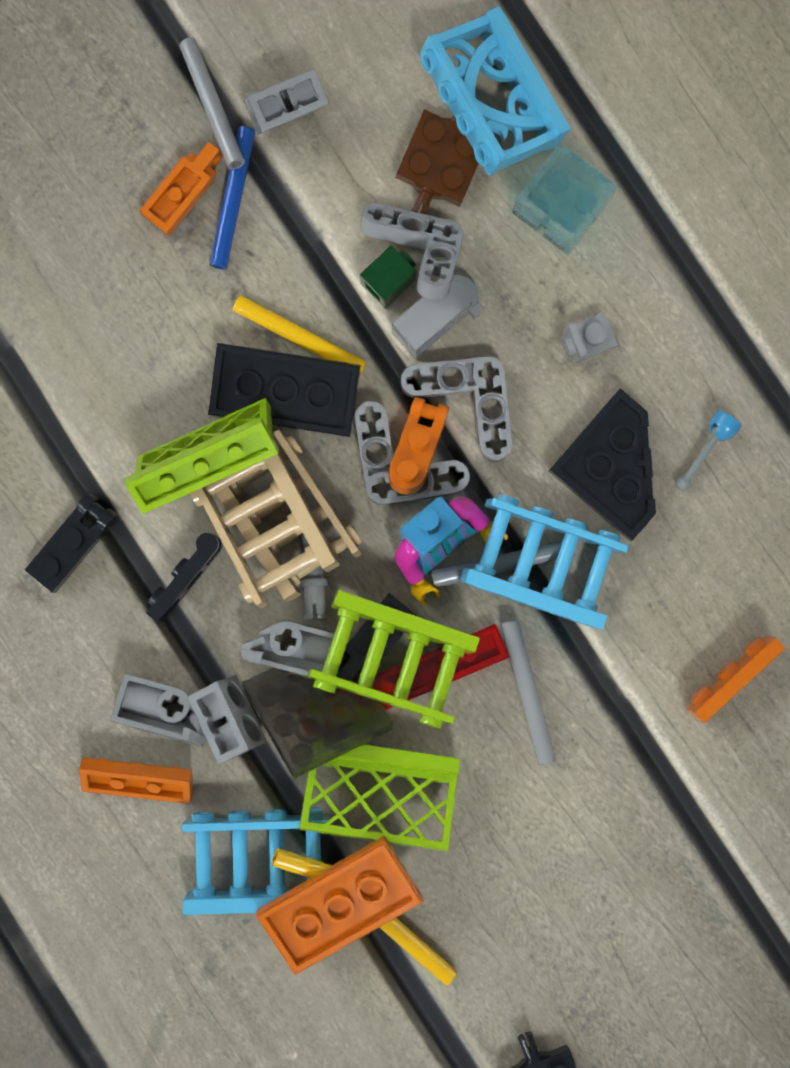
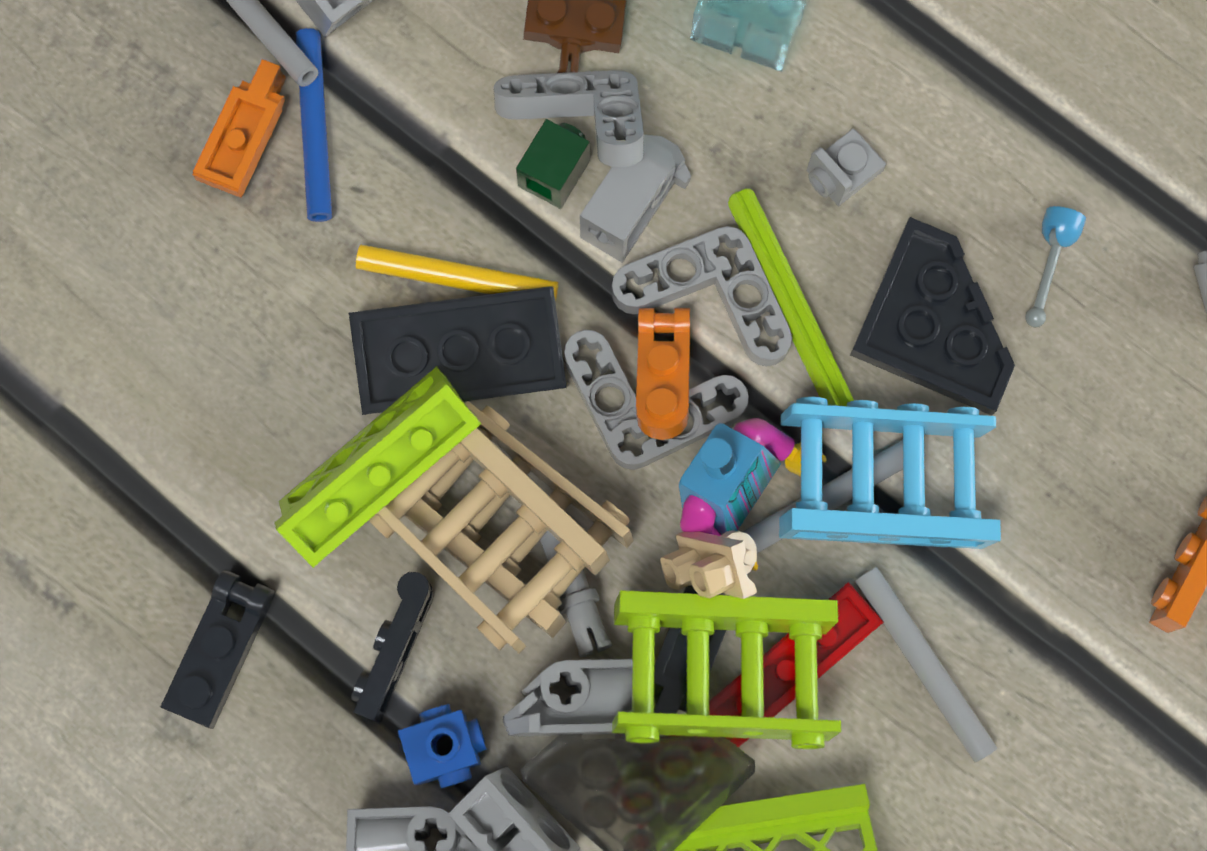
camera: 20 degrees left, 10 degrees down
(184, 654) = (422, 741): none -> blue brick
(405, 589) = (712, 563): none -> tan hips
(520, 422) = (798, 315): none -> lime axle

